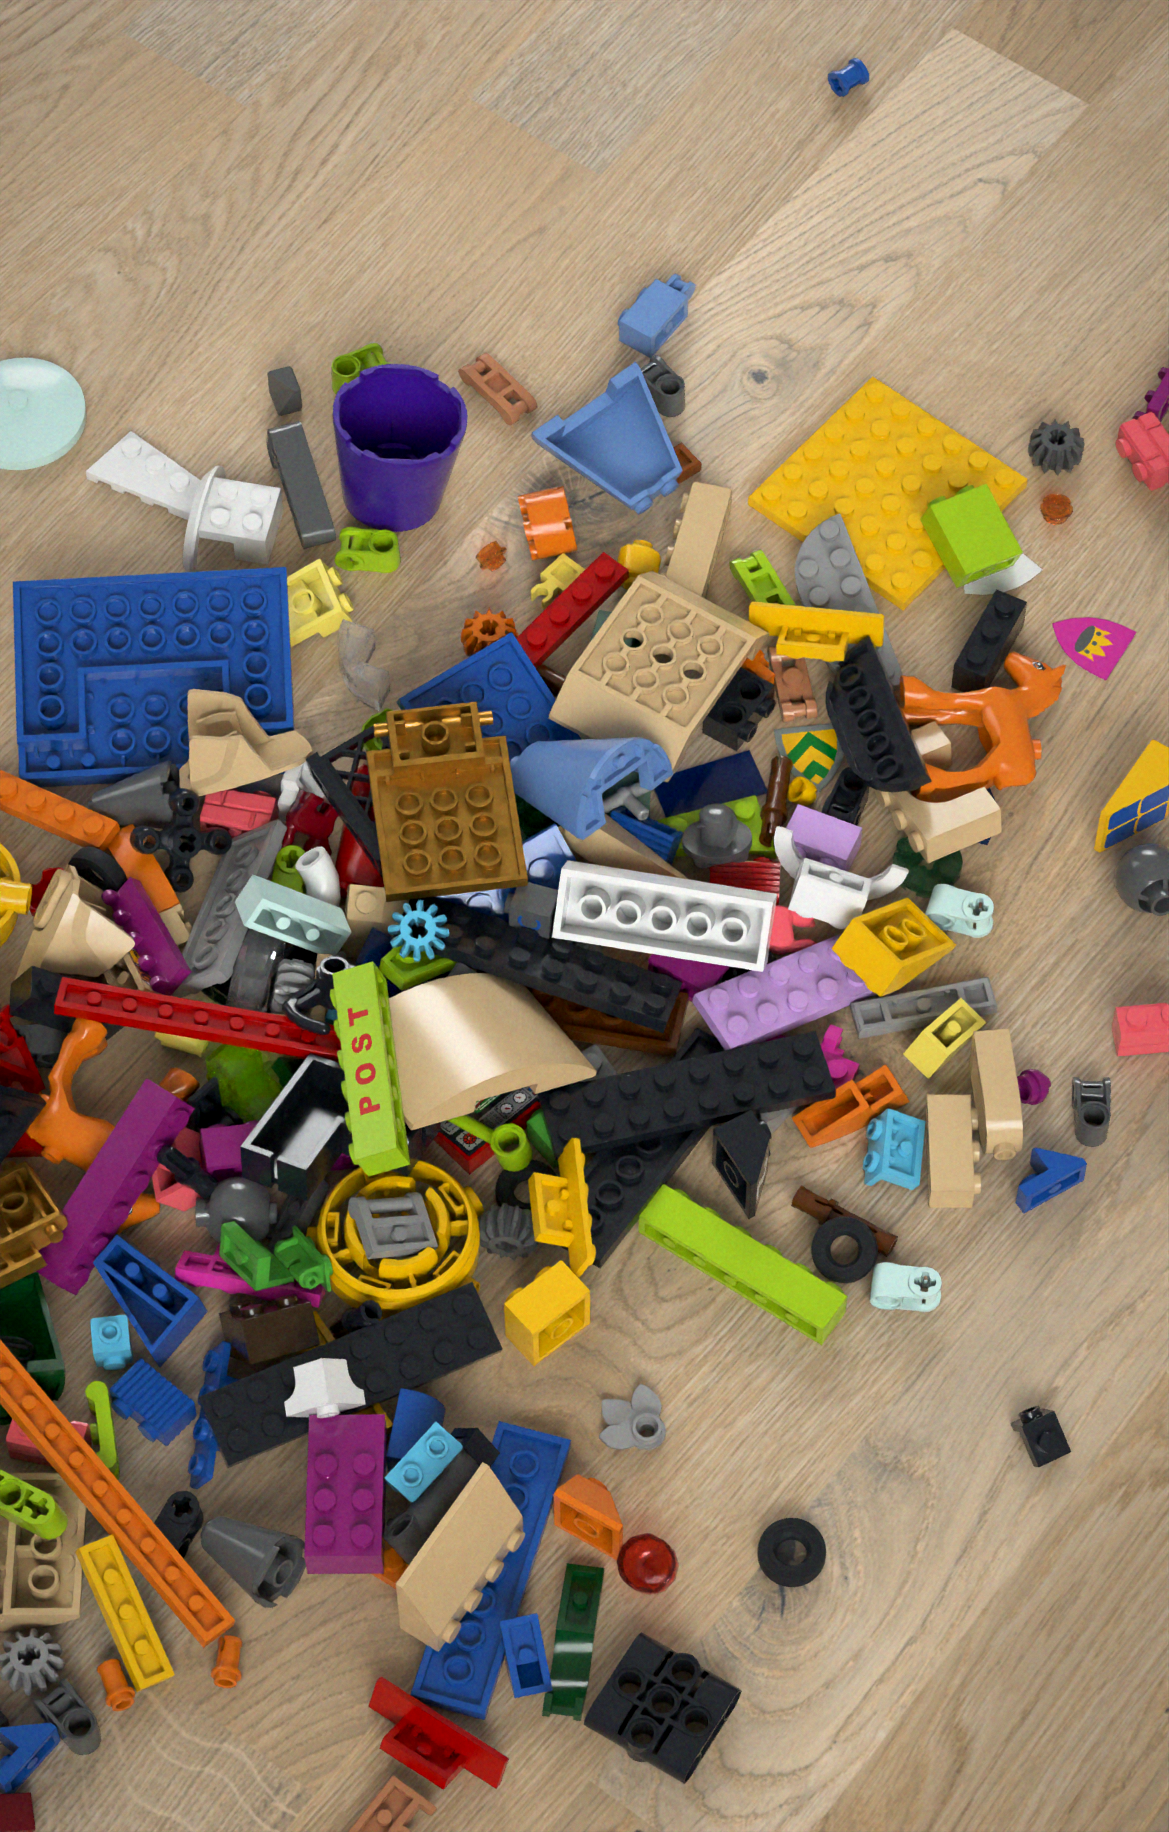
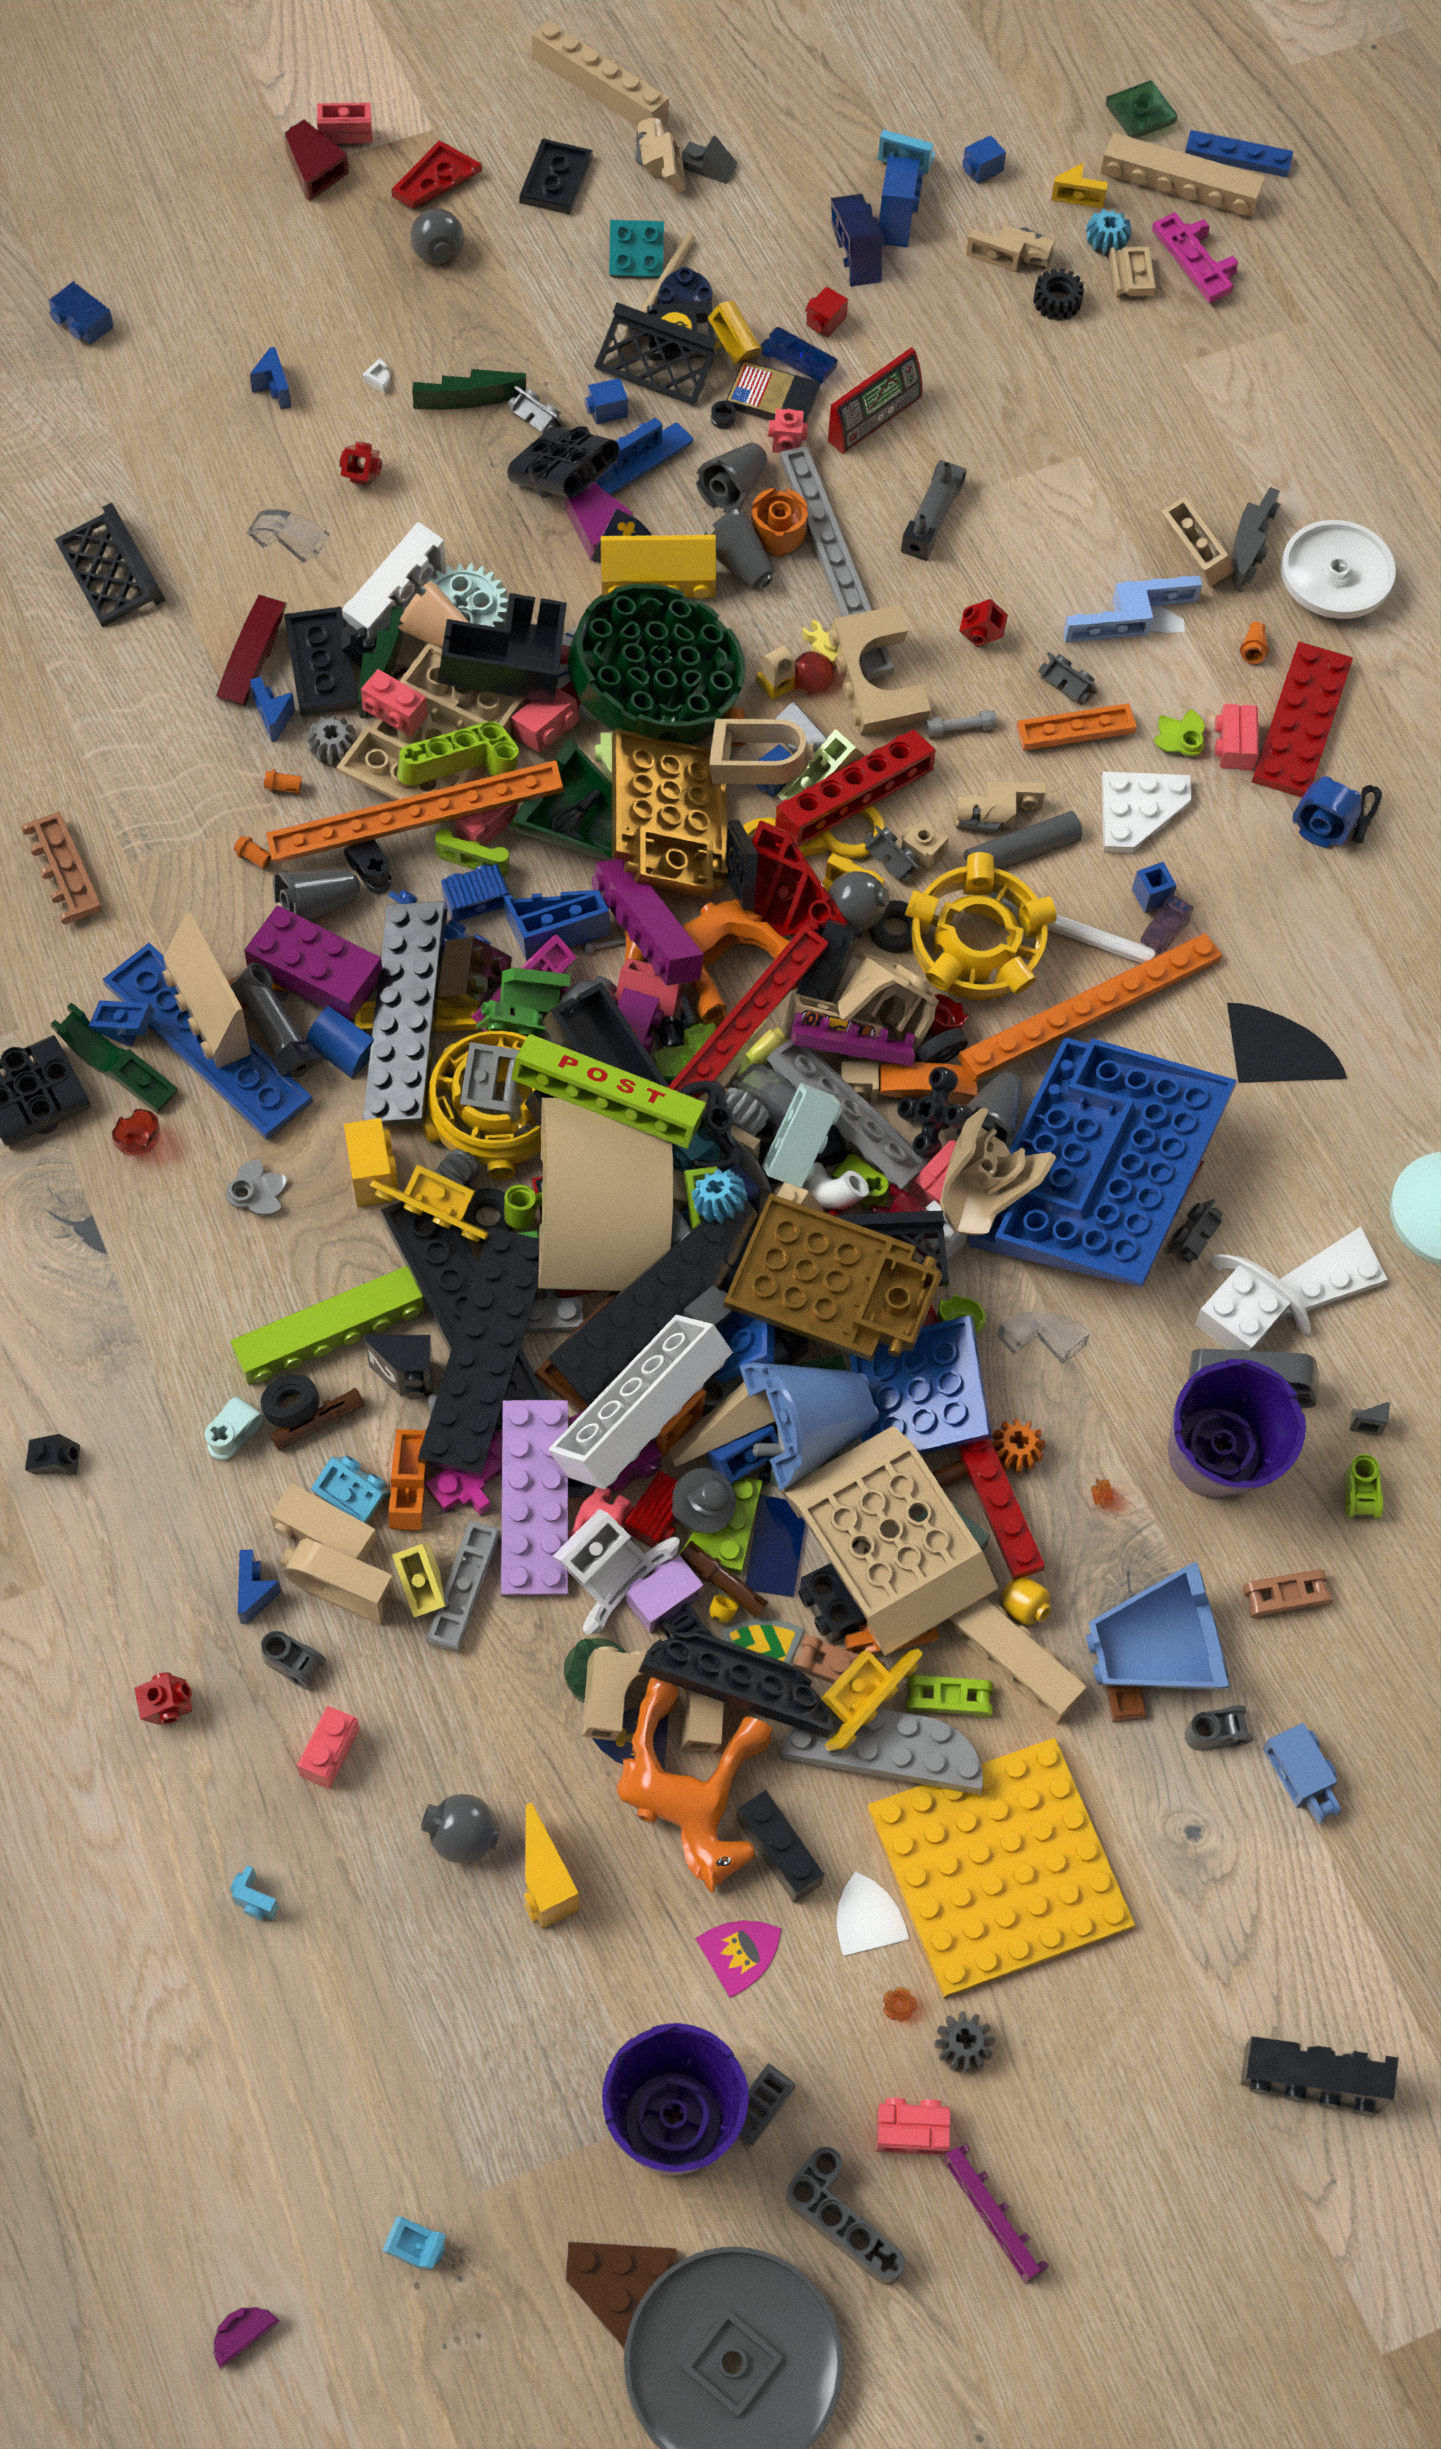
camera: 115 degrees right, 5 degrees up
(69, 1712) = (278, 745): dark grey piece -> none
(111, 1342) = (534, 880): medium azure bracket -> none
(124, 1613) = (322, 799): yellow plate -> none
(187, 1171) = (626, 968): black axle -> none
(316, 602) = (1127, 1325): light yellow plate -> none
(323, 1389) = (385, 966): white brick -> none
(356, 1318) = (444, 1035): black axle -> none
(368, 550) = (1161, 1396): lime piece -> none
(423, 1463) = (297, 1011): medium azure bracket -> none
(432, 1742) = (105, 935): red bracket -> none
(547, 523) = (1106, 1545): orange brick -> none
(556, 579) = (1048, 1534): light yellow plate -> none
(589, 1513) = (195, 1112): orange slope -> none
(787, 1574) = (87, 1255): black tyre -> none
(891, 946) = (522, 1582): yellow slope -> none
(909, 203) = (1319, 2075): none -> black wedge
(958, 909) = (536, 1660): light aqua piece -> none
(971, 534) = (899, 1892): lime brick -> none
(1033, 1086) = (339, 1627): magenta plate -> none

